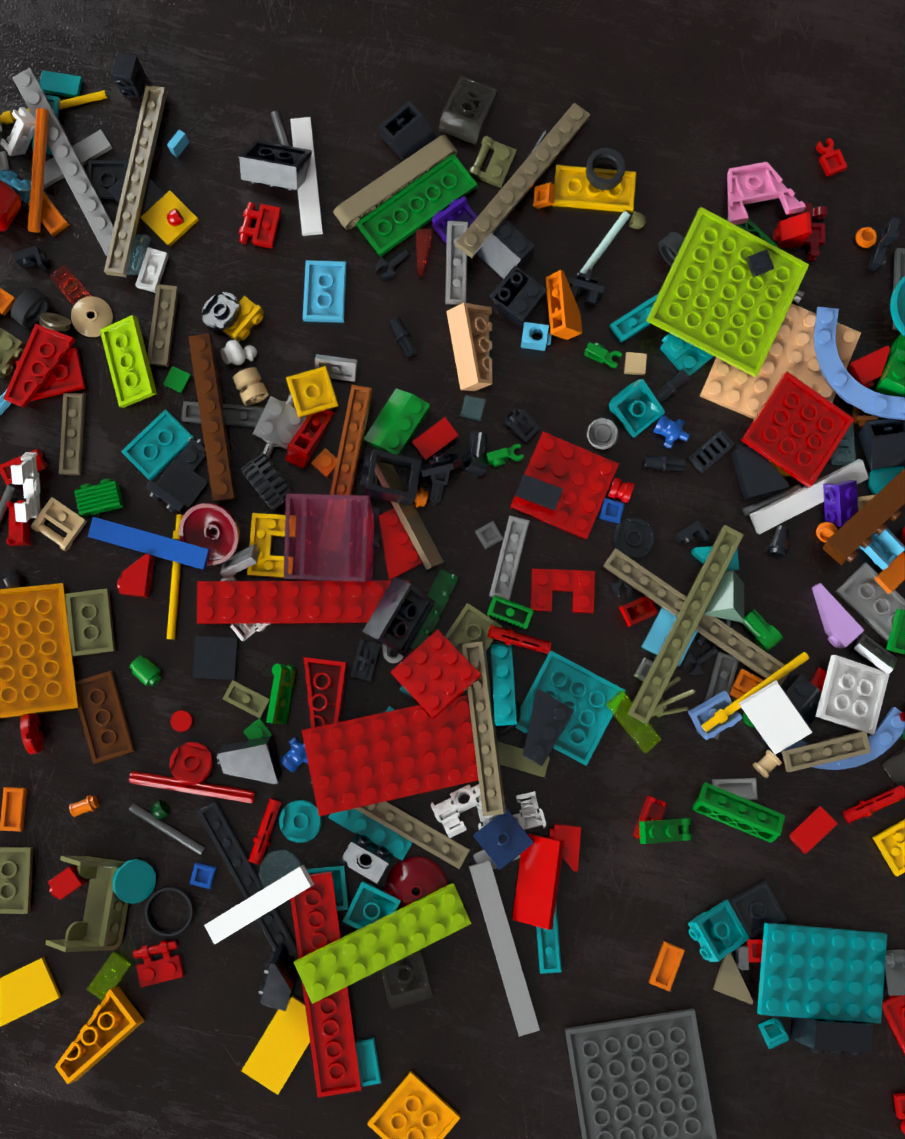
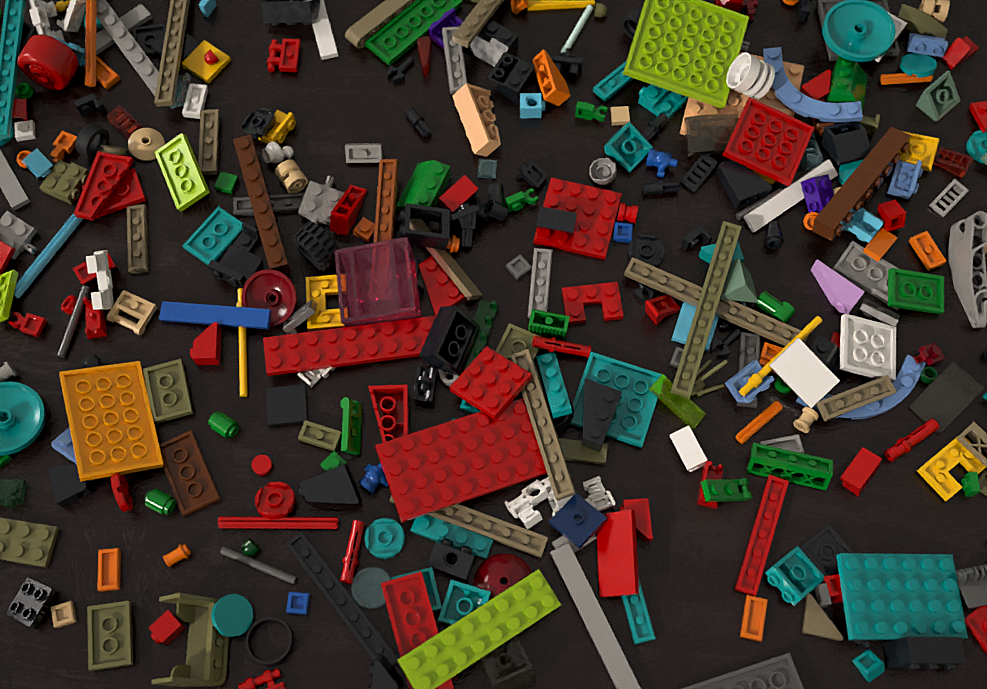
camera: 10 degrees left, 15 degrees down
(71, 746) = (159, 501): none -> green brick
(99, 498) = (166, 285): green brick -> none
(259, 904) = (355, 614): white tile -> none
(312, 391) = (345, 172): yellow tile -> none
(324, 291) = (346, 98): medium azure tile -> none
(635, 777) = (688, 448): none -> white hinge
(693, 882) = (761, 535): none -> red plate
(716, 757) = (759, 422): none -> orange axle
(732, 407) = (708, 133): none -> clear smoke slope
(759, 263) = (708, 18): black plate -> none
(793, 347) = (750, 76): none -> white wheel

